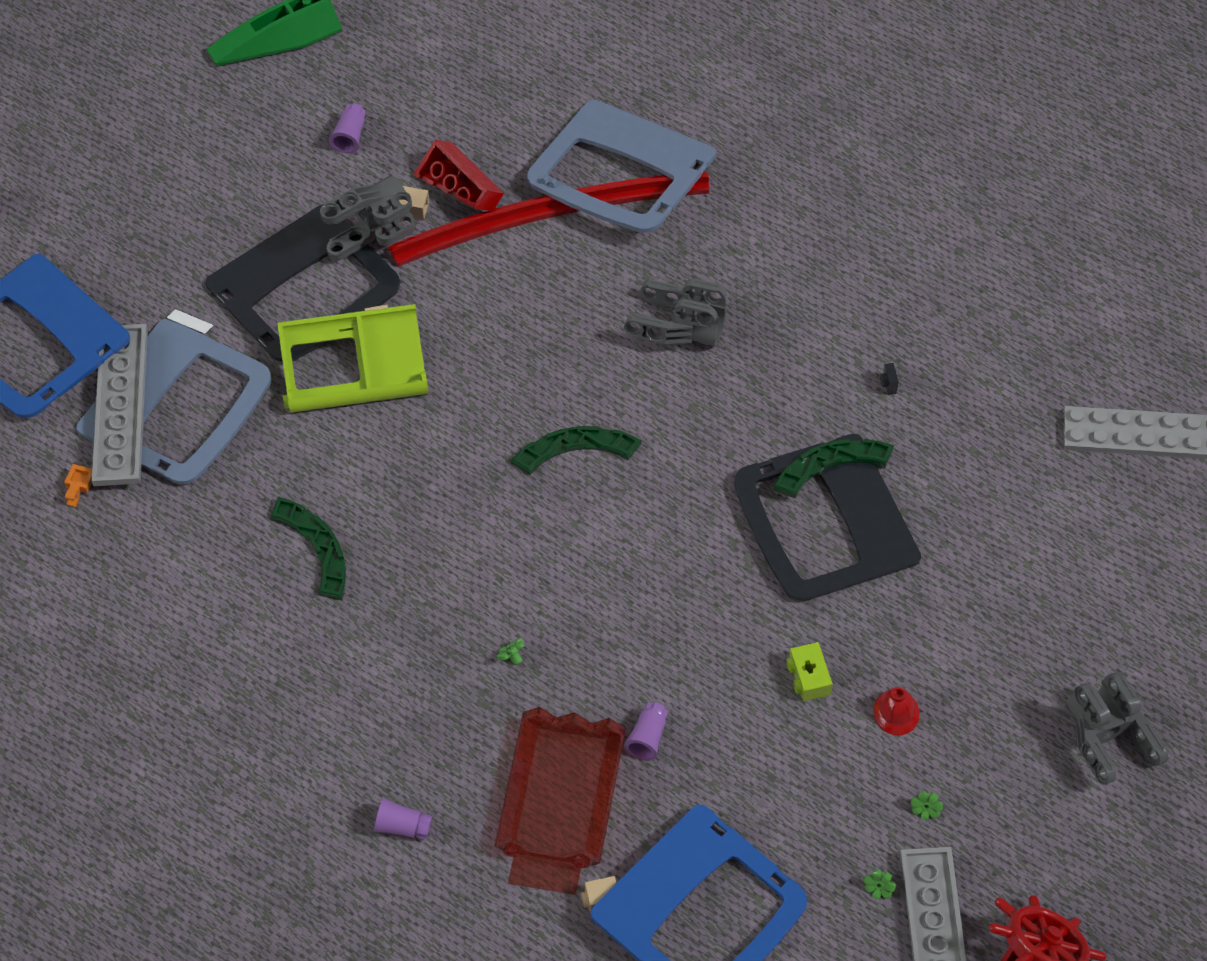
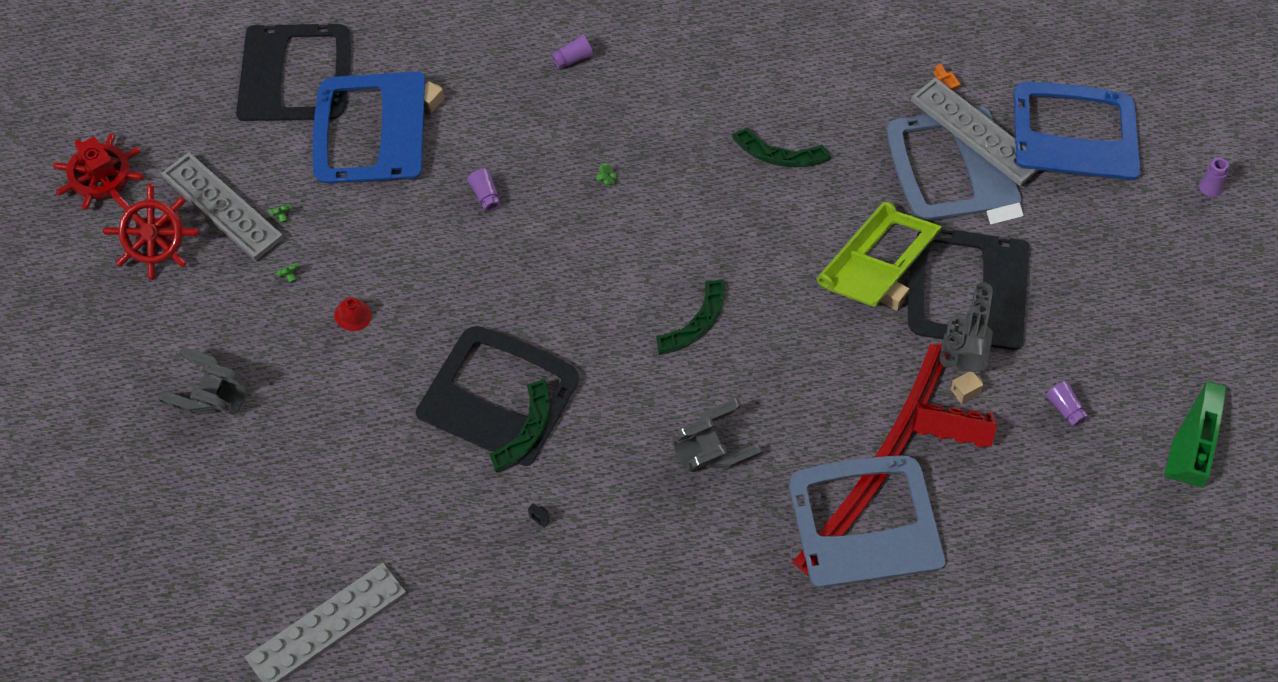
camera: 140 degrees right, 0 degrees up
(558, 798) = (503, 125): clear red panel -> none
(816, 682) = (421, 291): lime brick -> none

